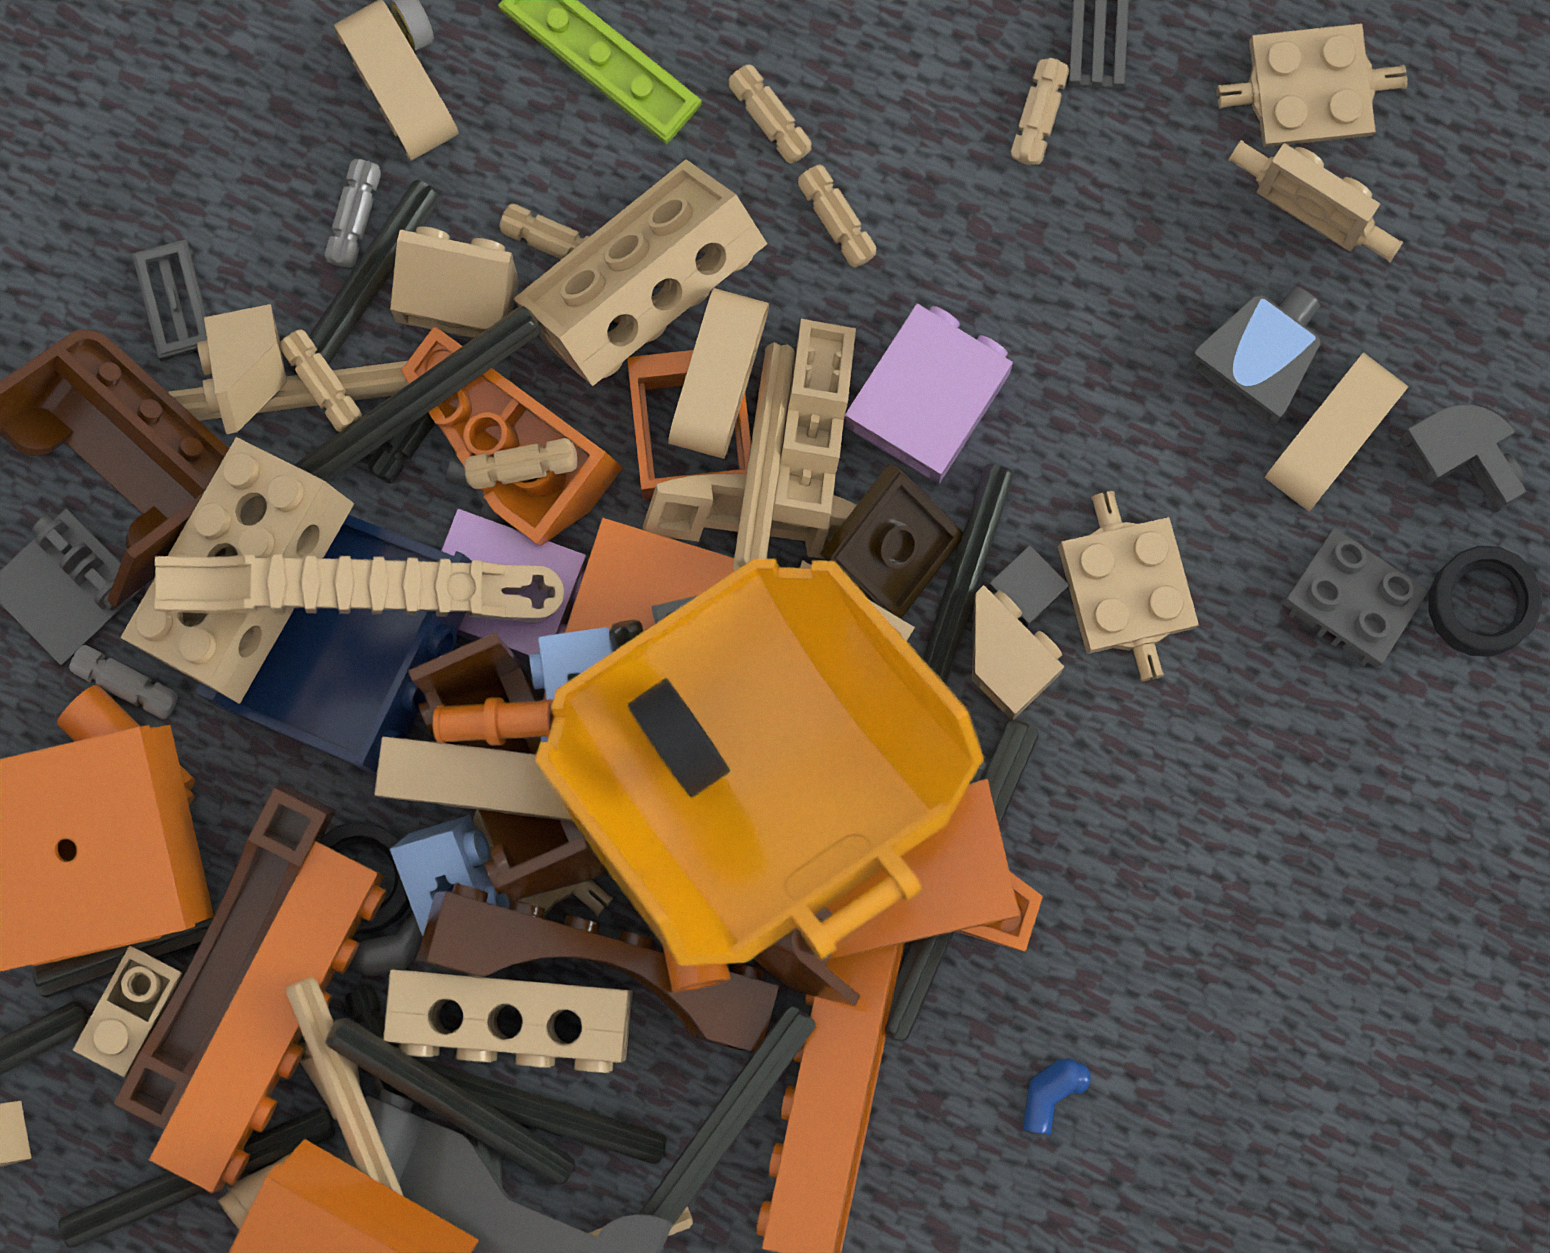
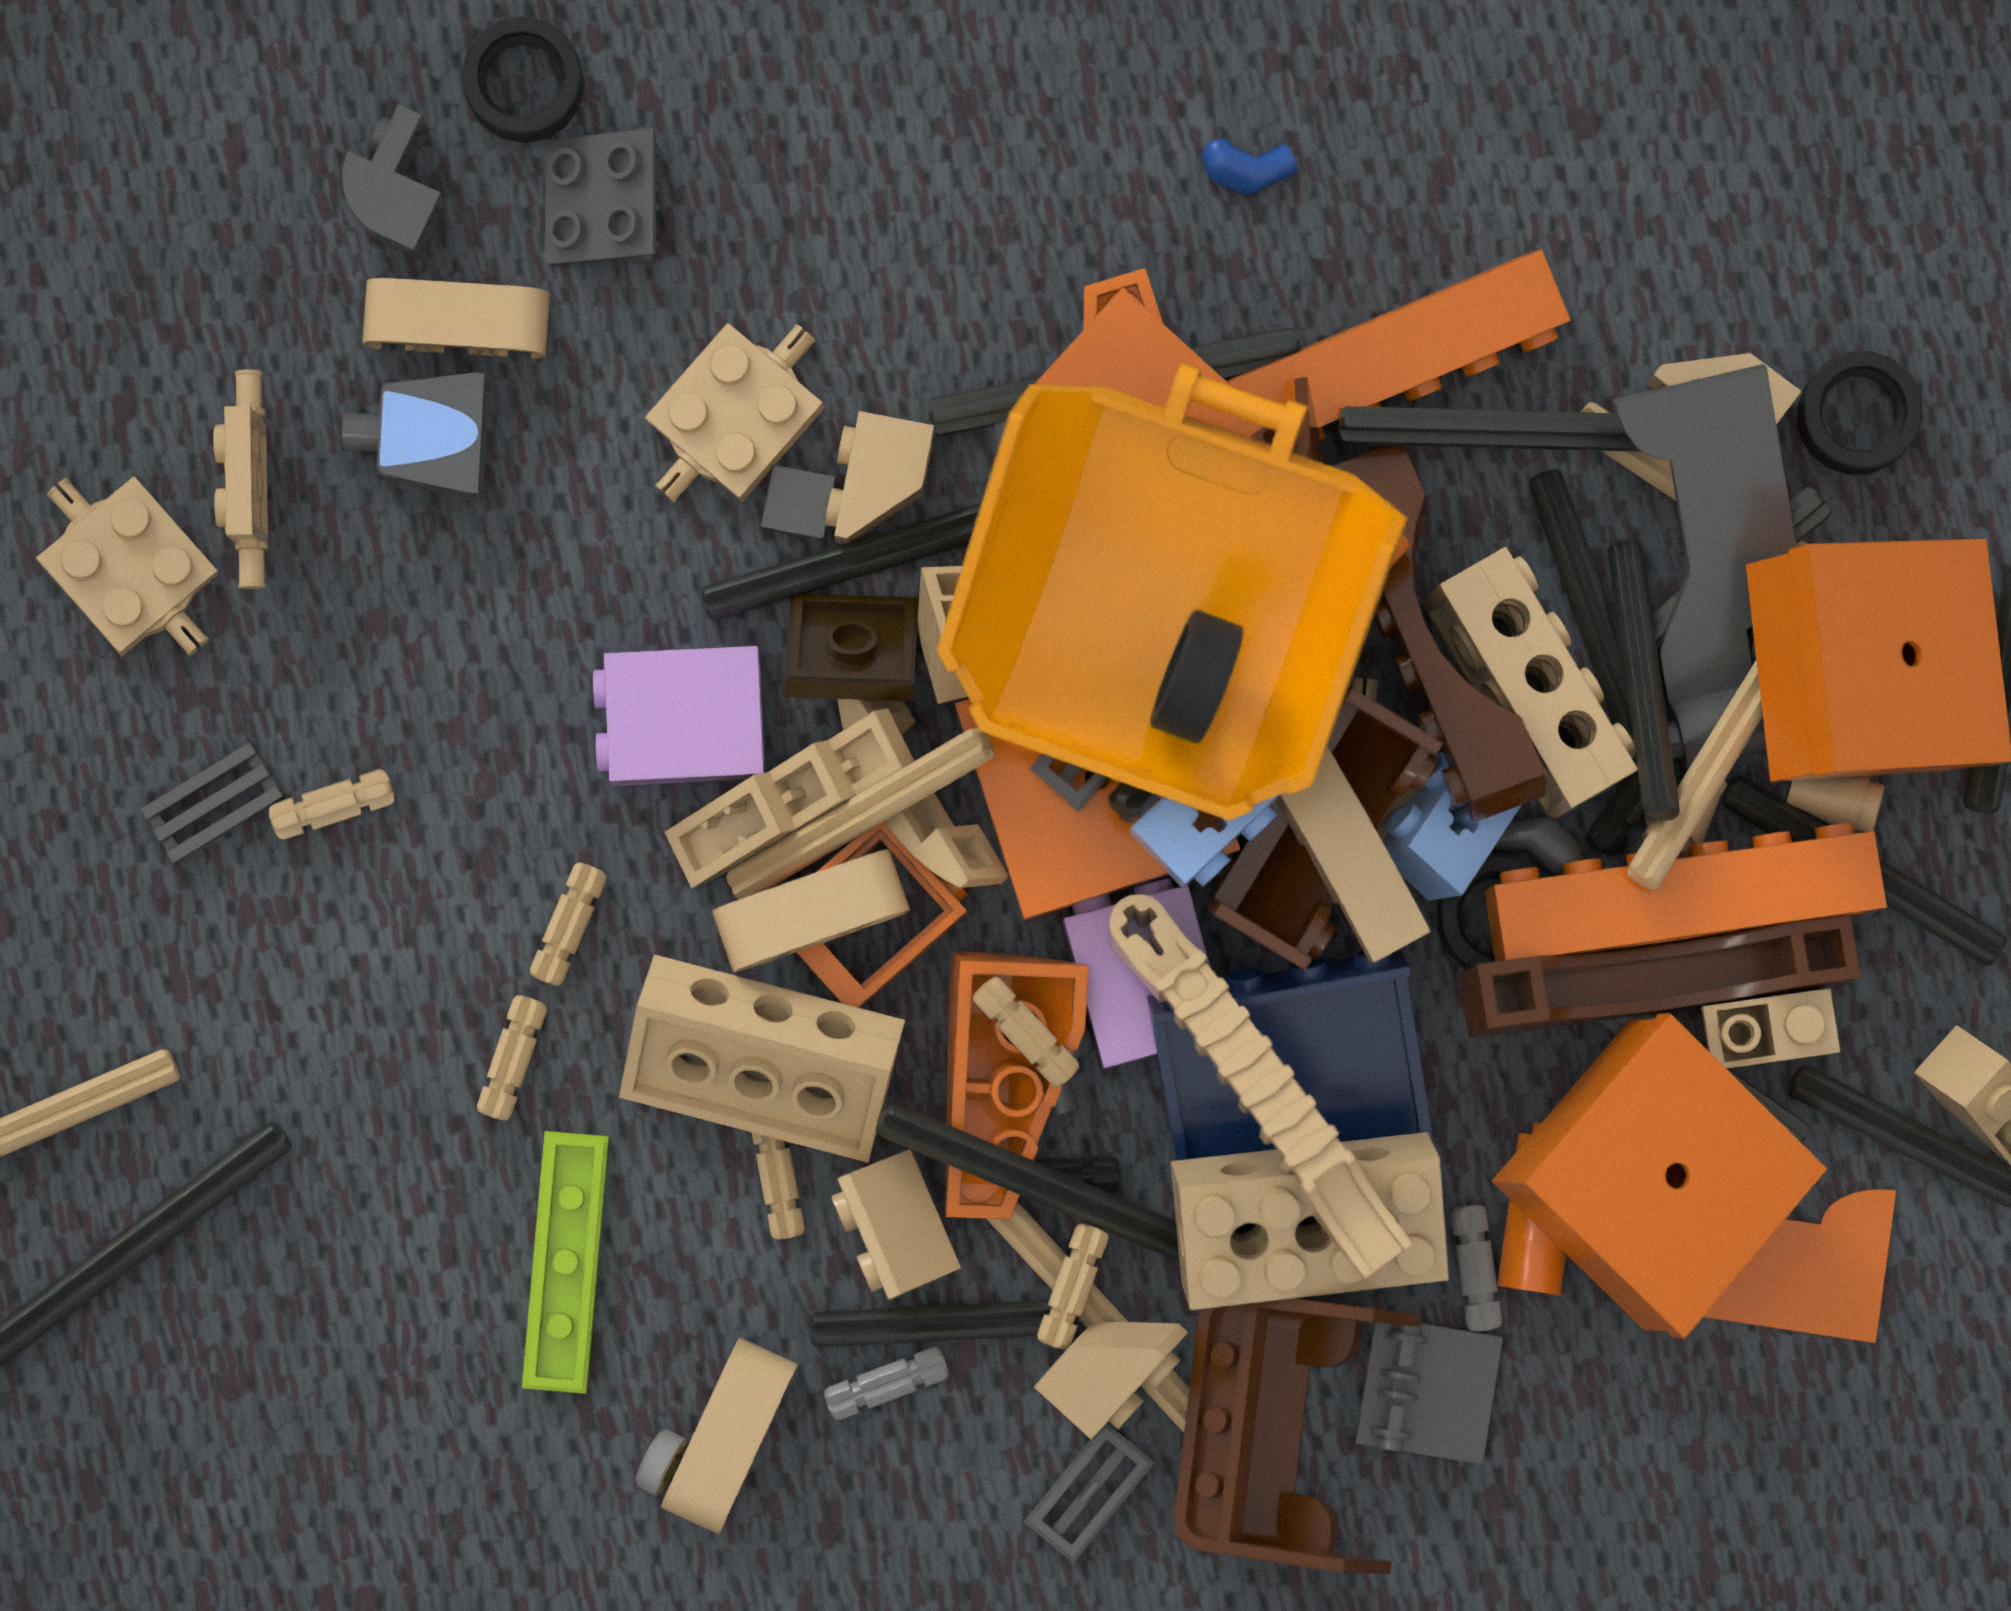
camera: 130 degrees left, 5 degrees up
(493, 721) = (1290, 865): orange pin -> none

